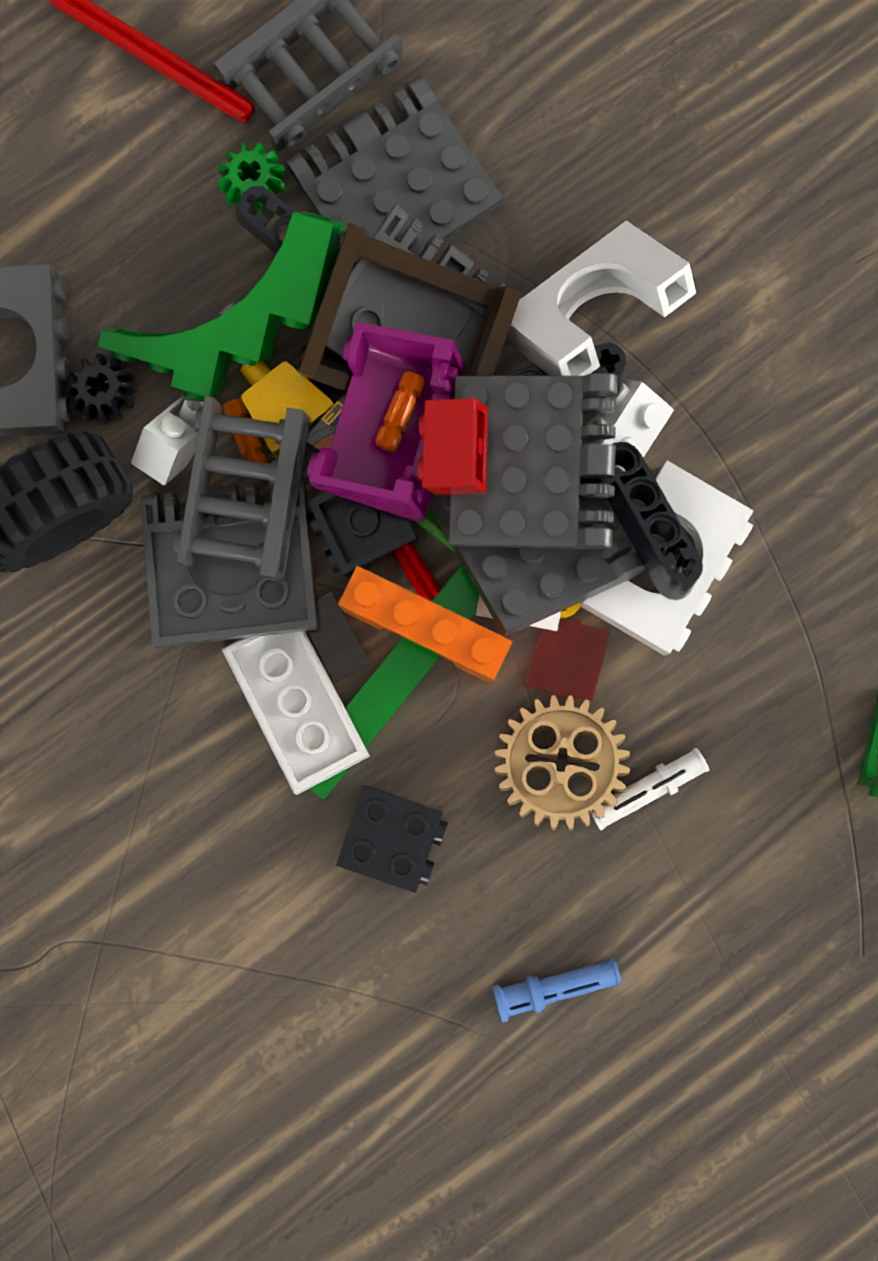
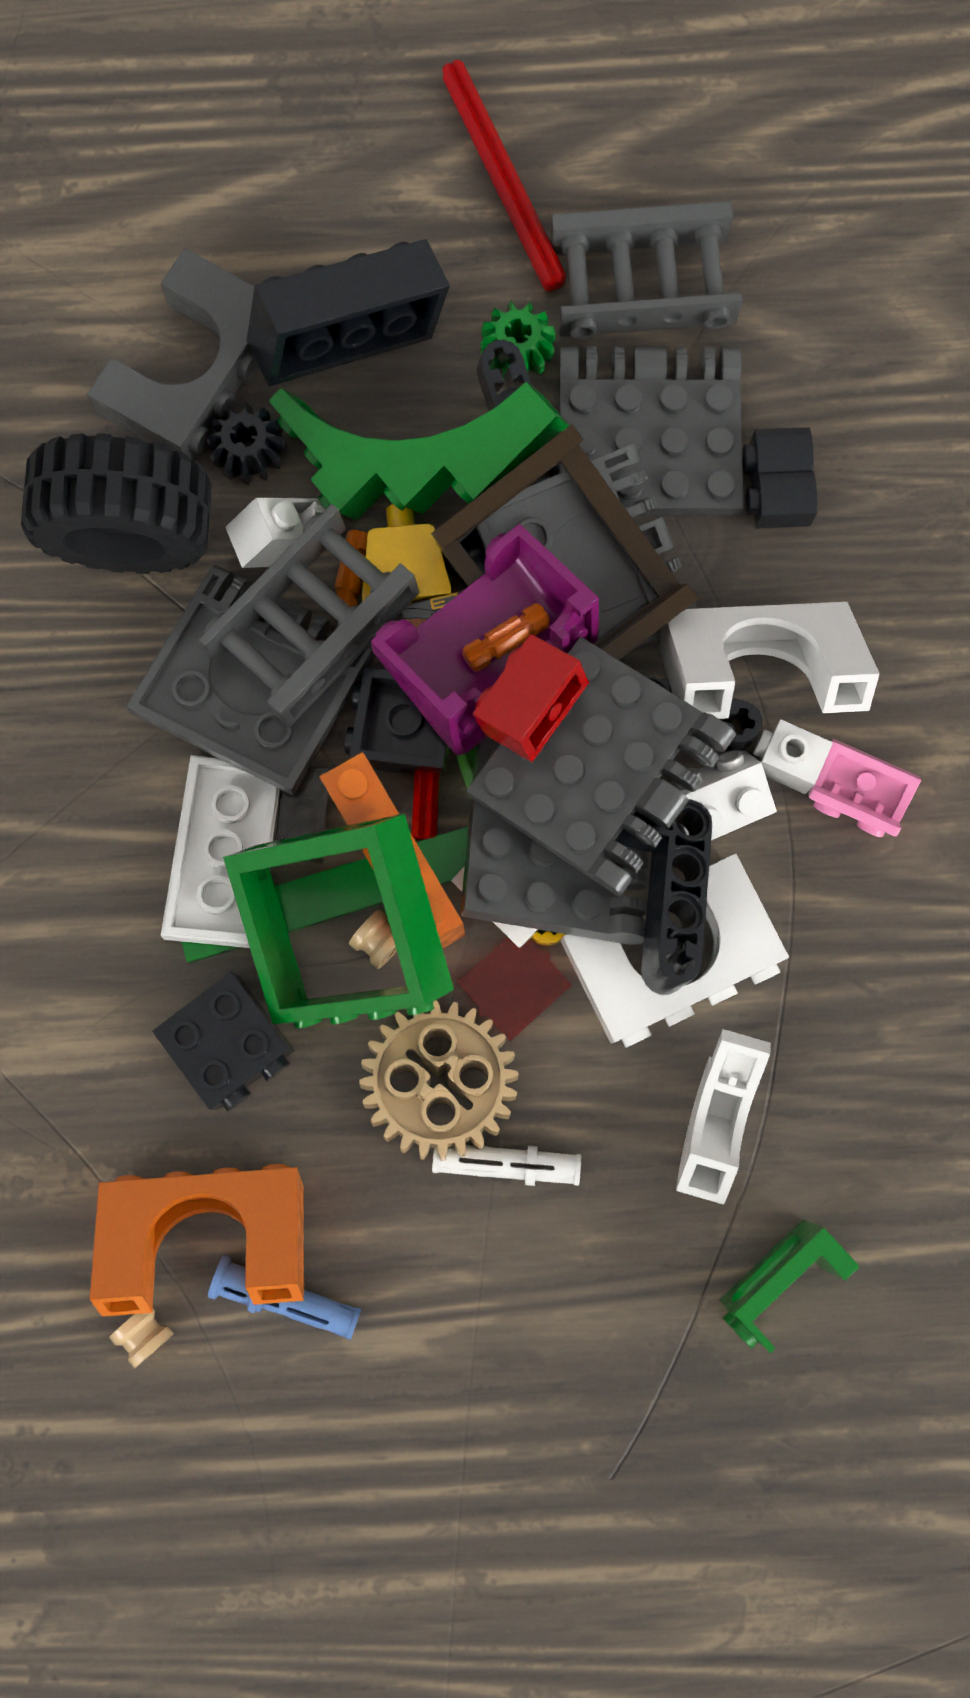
camera: 30 degrees right, 5 degrees down
(112, 240) = (345, 311): none -> black brick
(415, 996) = (140, 1212): none -> orange arch
(450, 691) = (375, 939): none -> tan wheel
(465, 654) = (404, 903): none -> green window
(473, 1080) = (141, 1337): none -> tan wheel
(516, 156) = (781, 477): none -> black brick
(659, 361) = (792, 755): none -> white brick
(725, 352) = (863, 789): none -> bright pink bracket
(776, 656) = (720, 1116): none -> white arch

